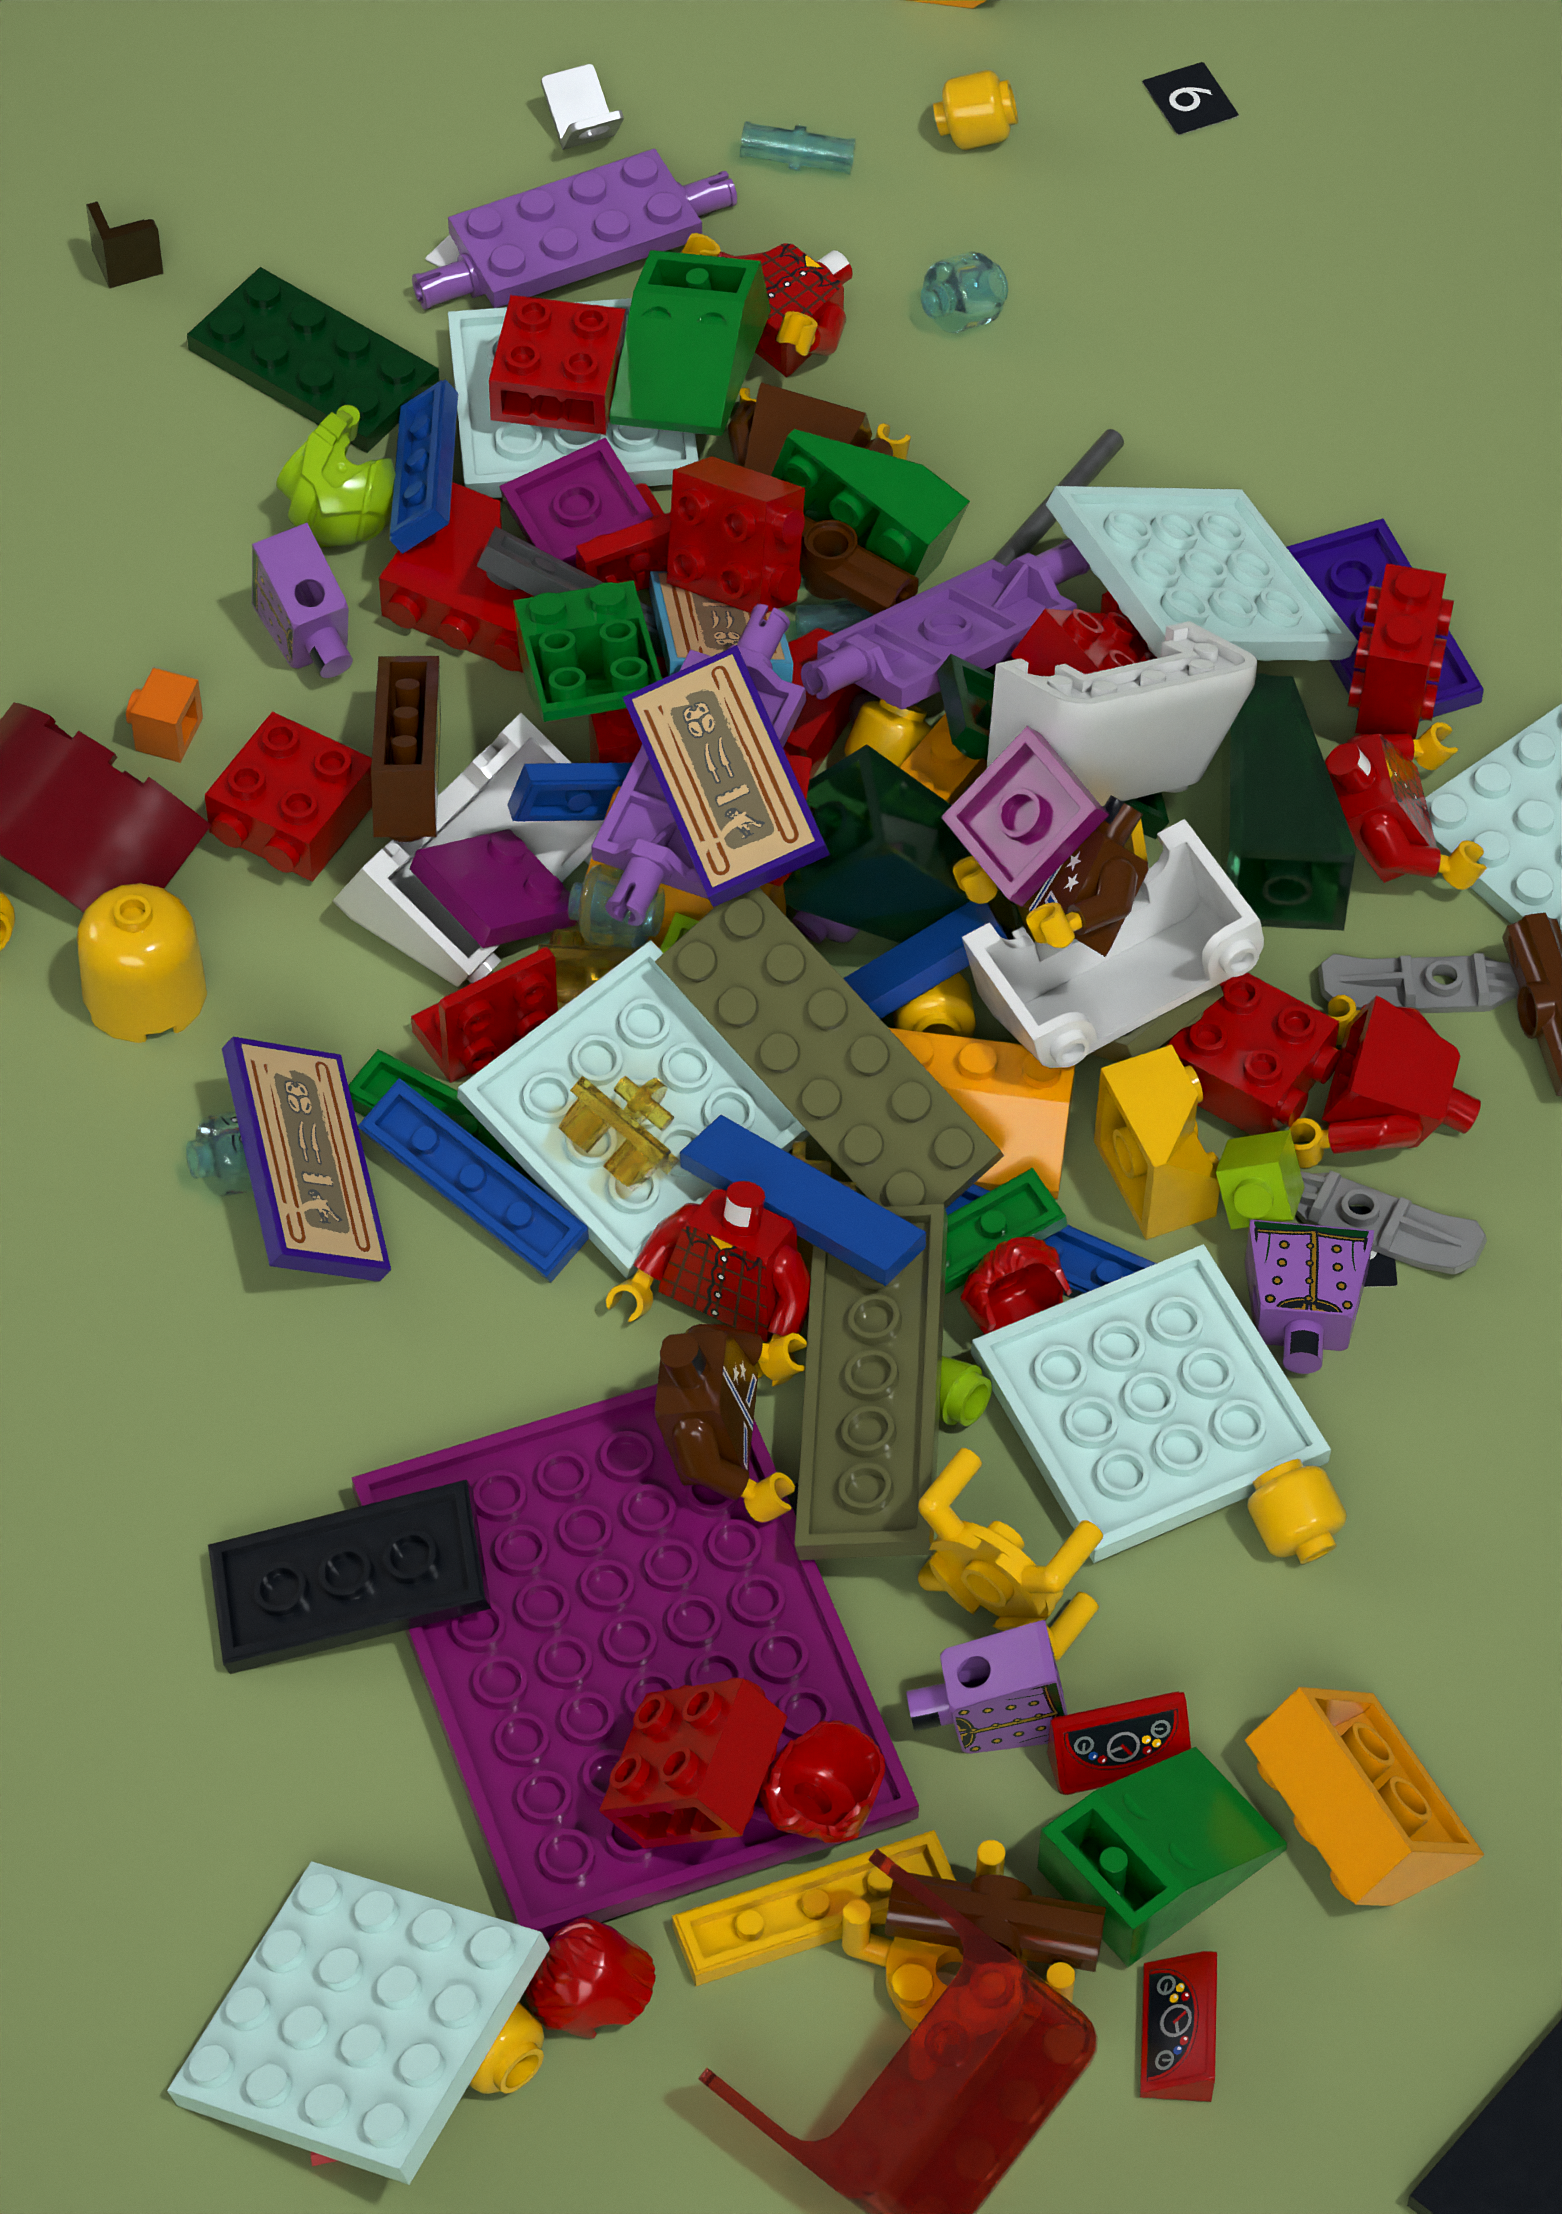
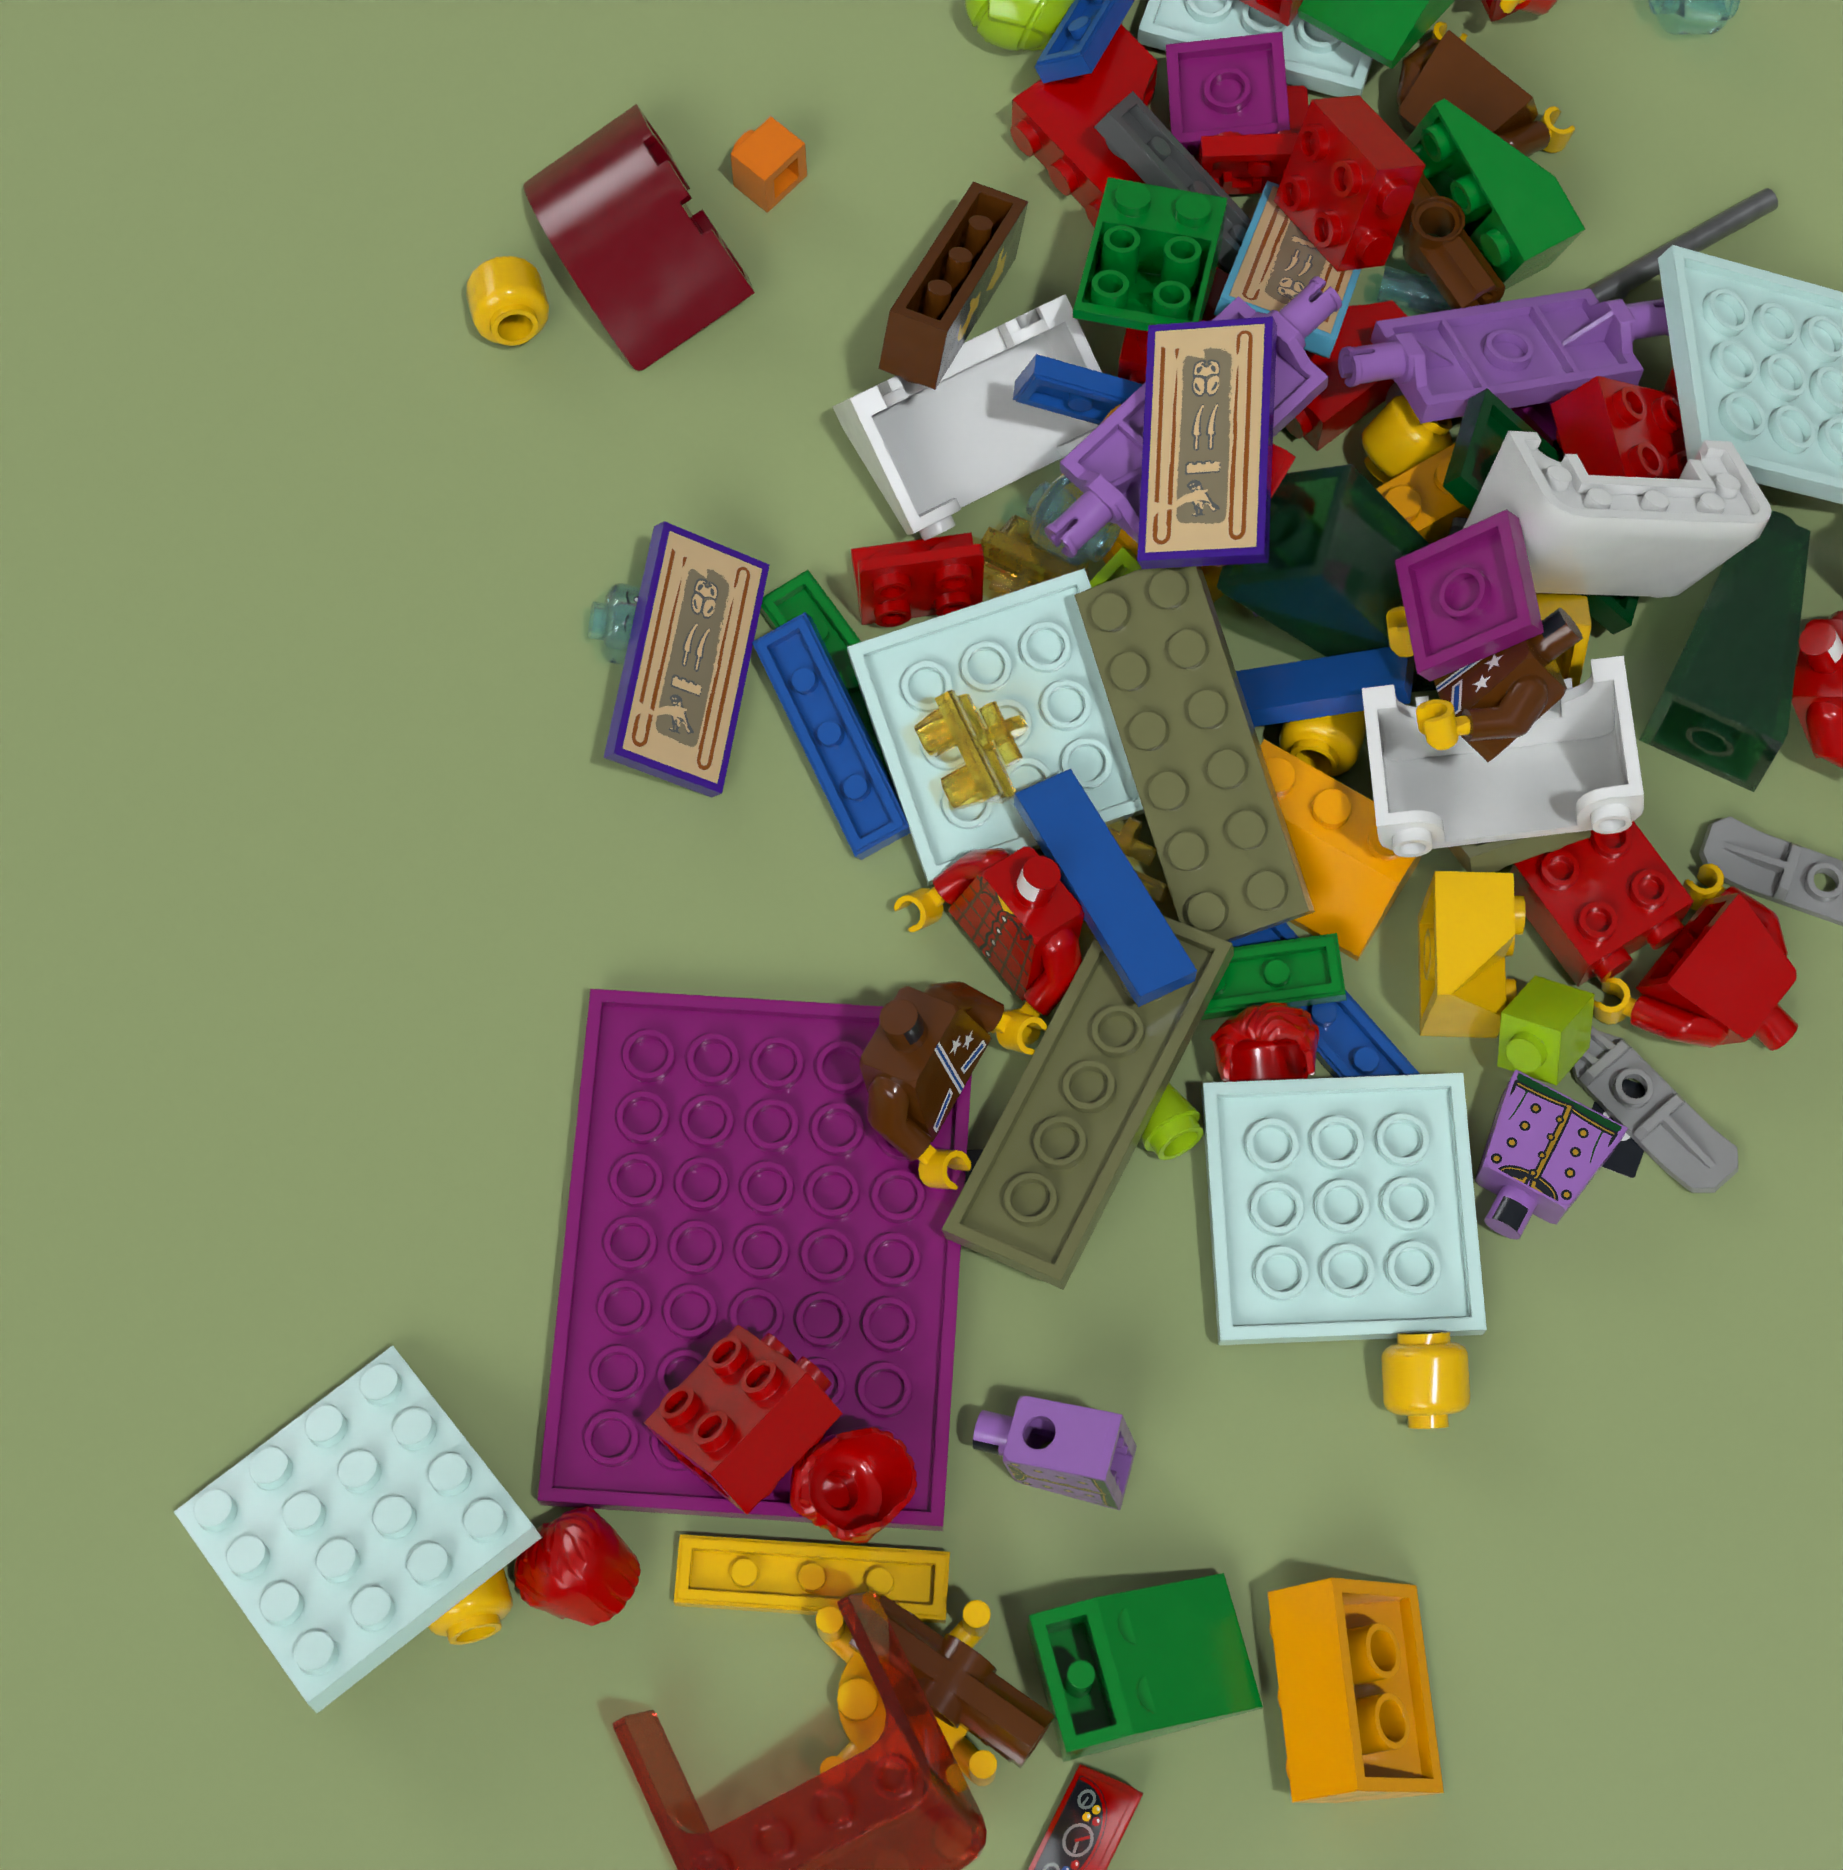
camera: 25 degrees right, 15 degrees up
(140, 963) = (631, 407): yellow cylinder -> none
(290, 797) = (833, 289): red brick -> none
(301, 601) = (934, 98): medium lavender torso -> none
(348, 1576) = (544, 1086): black tile -> none
(494, 887) = (976, 452): magenta plate -> none
(993, 1572) = (1103, 1327): yellow plate -> none
(1116, 1741) = (1155, 1540): slope -> none

